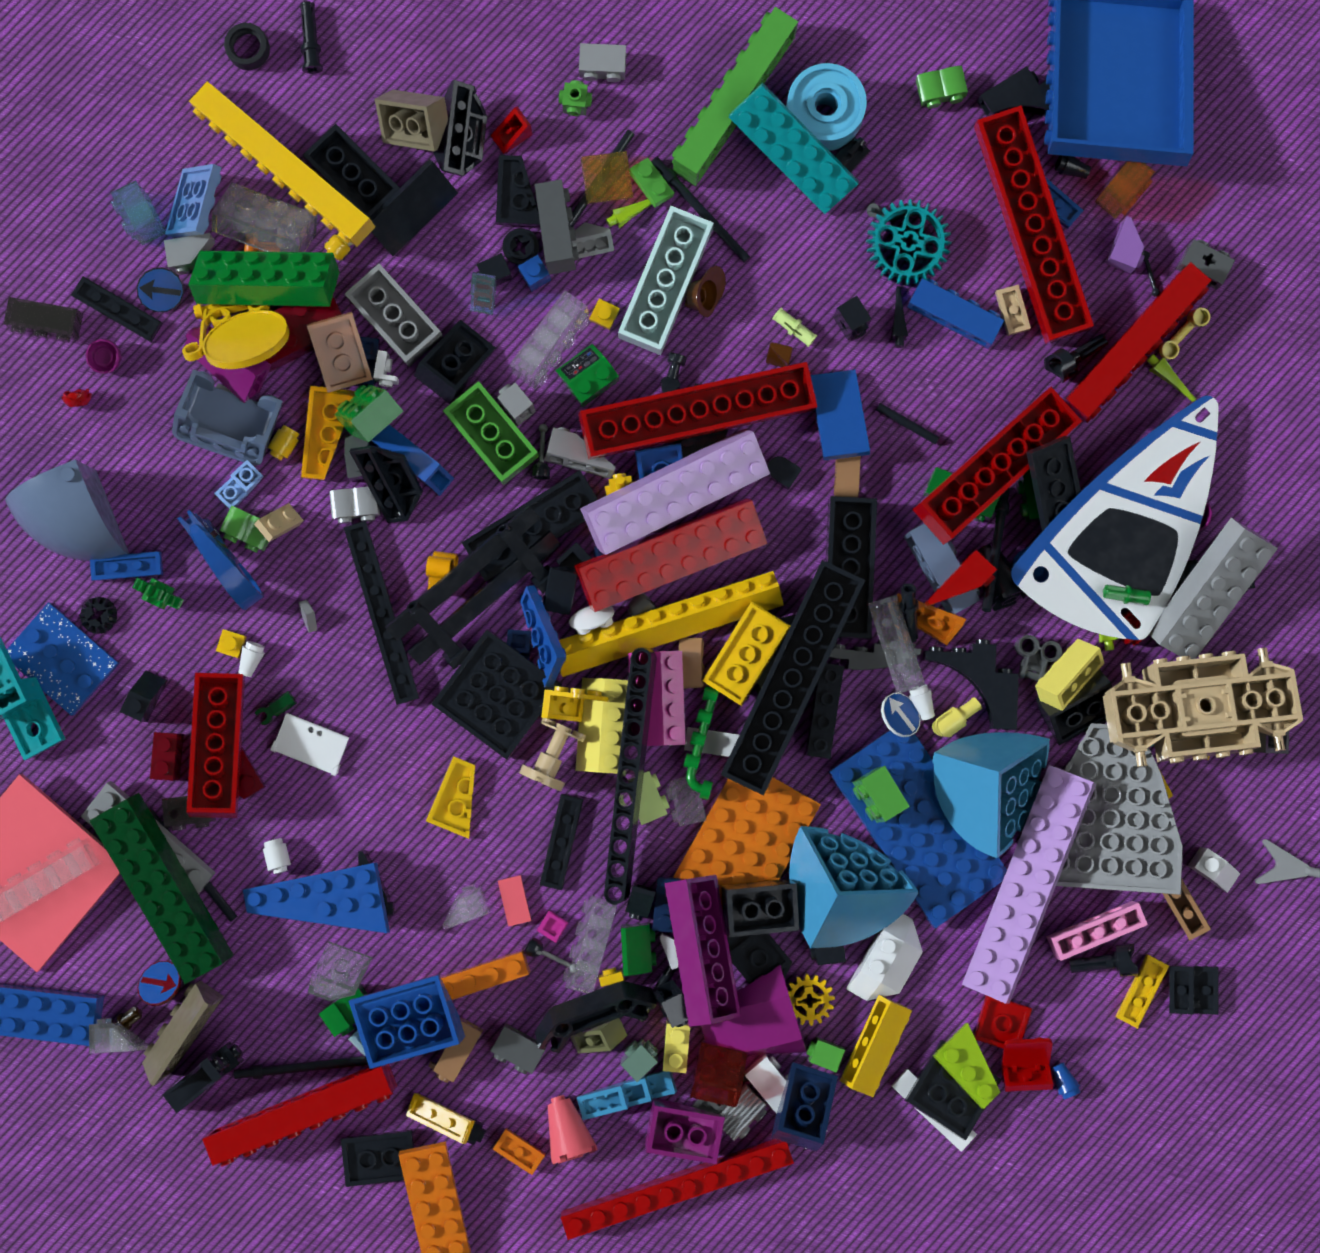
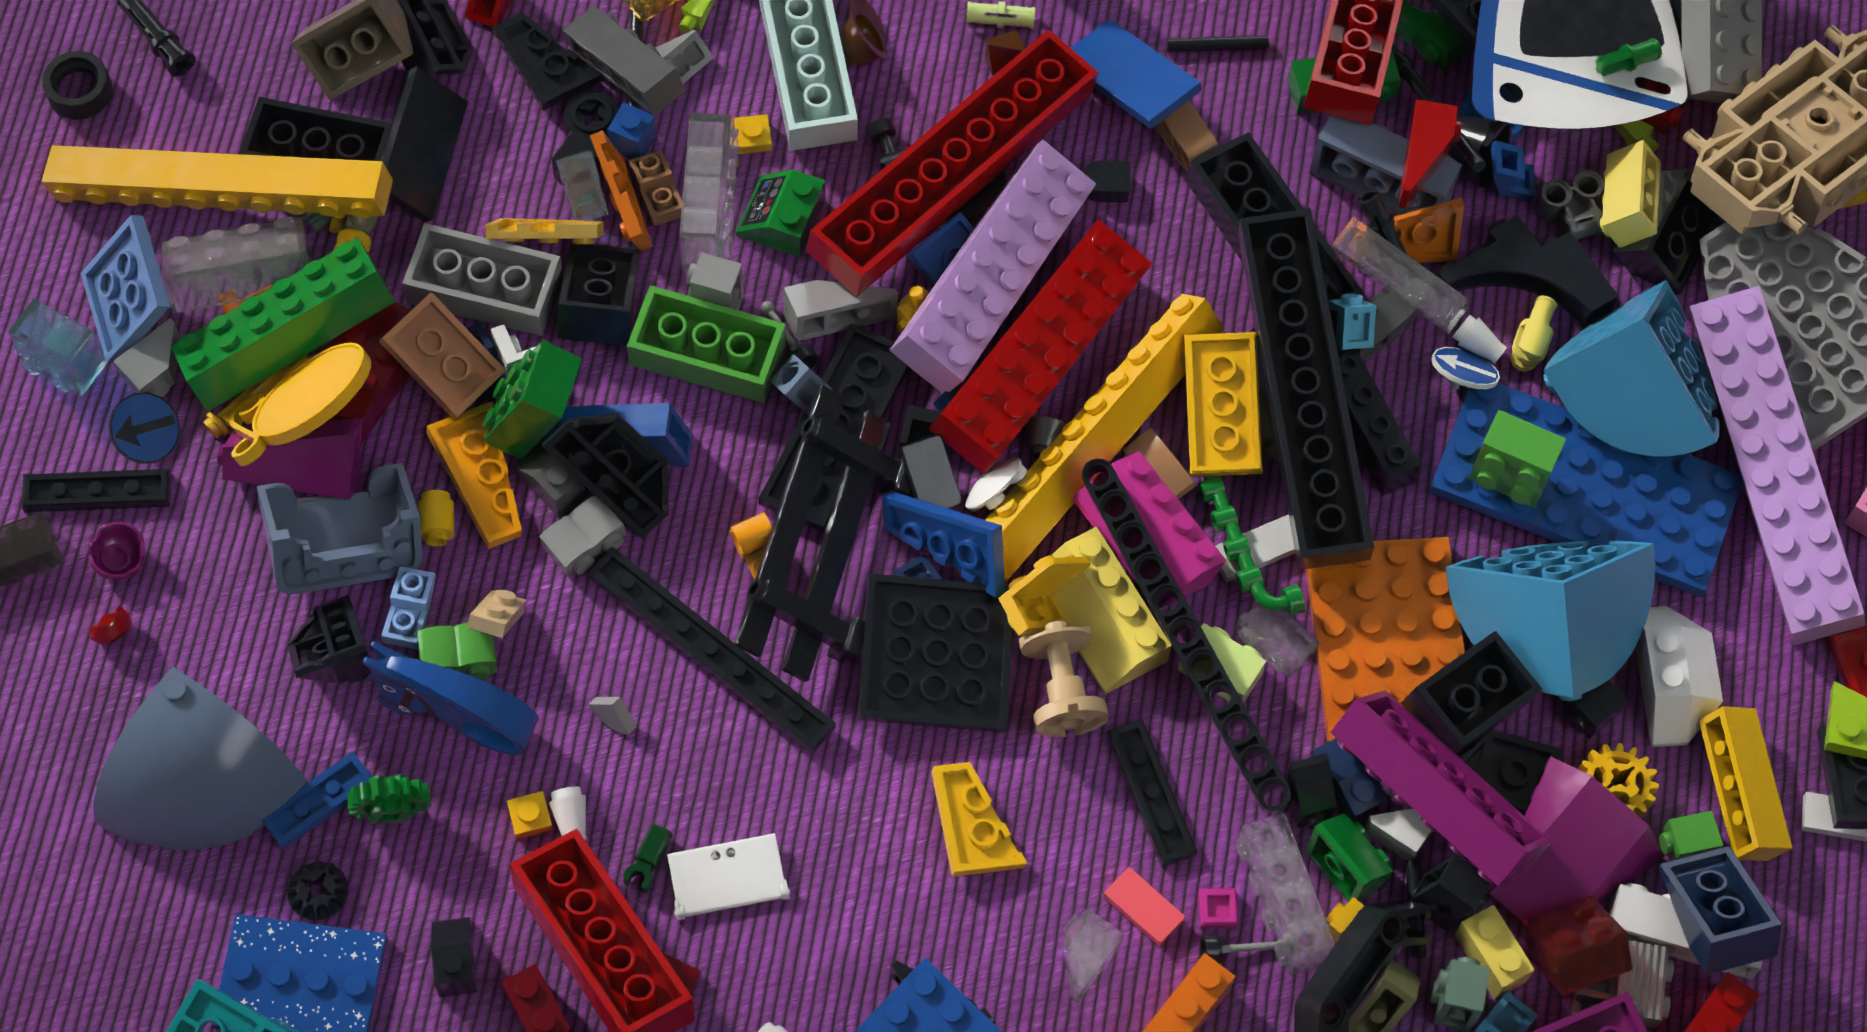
camera: 35 degrees left, 20 degrees down
(181, 484) = (330, 645): none -> black wedge
(445, 304) = (544, 230): none -> yellow wing
(505, 307) = (623, 192): none -> orange wing
(525, 491) = (798, 383): none -> sand blue brick
(529, 313) = (657, 187): none -> medium nougat slope
(852, 653) = (1354, 322): none -> medium azure bracket
(1013, 616) = (1510, 172): none -> blue slope

